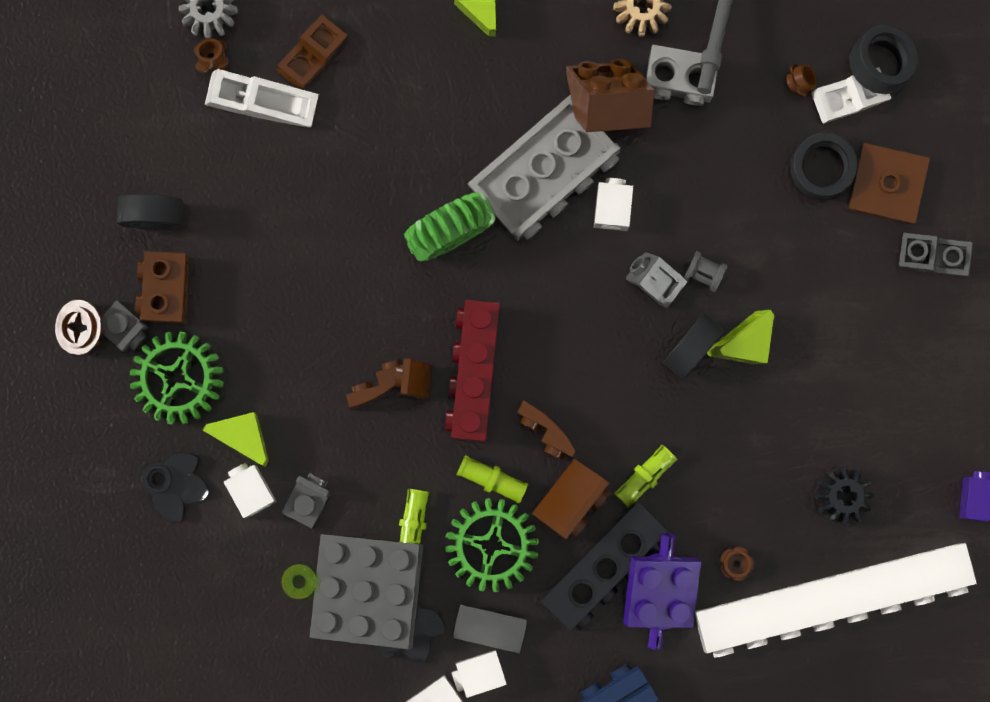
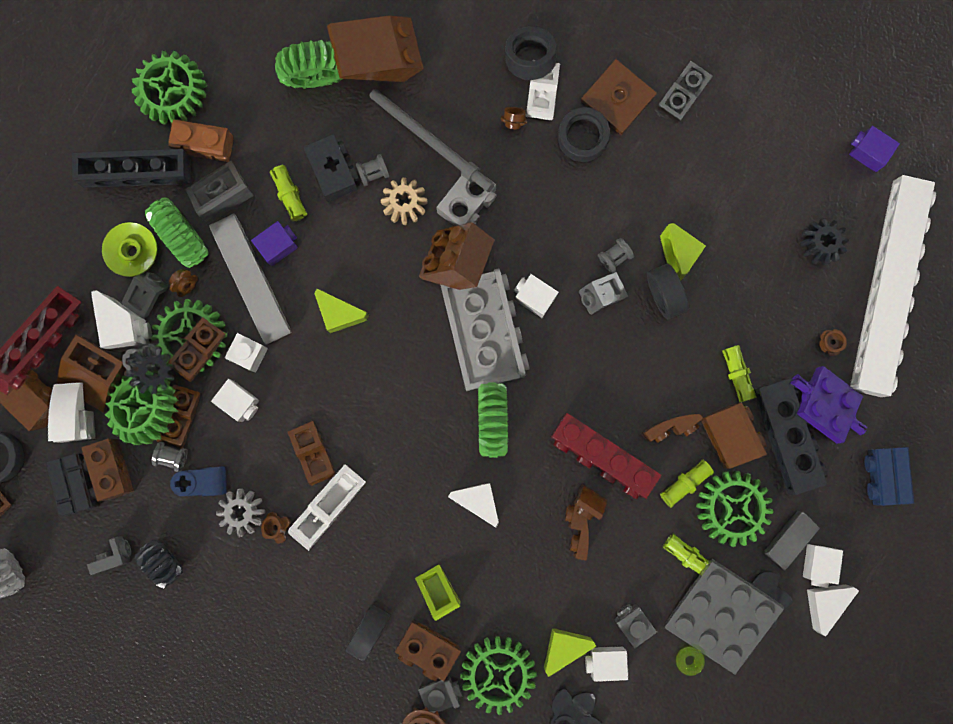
camera: 60 degrees left, 0 degrees up
(232, 266) = (438, 592): none -> lime slope
(354, 259) = (478, 501): none -> white slope

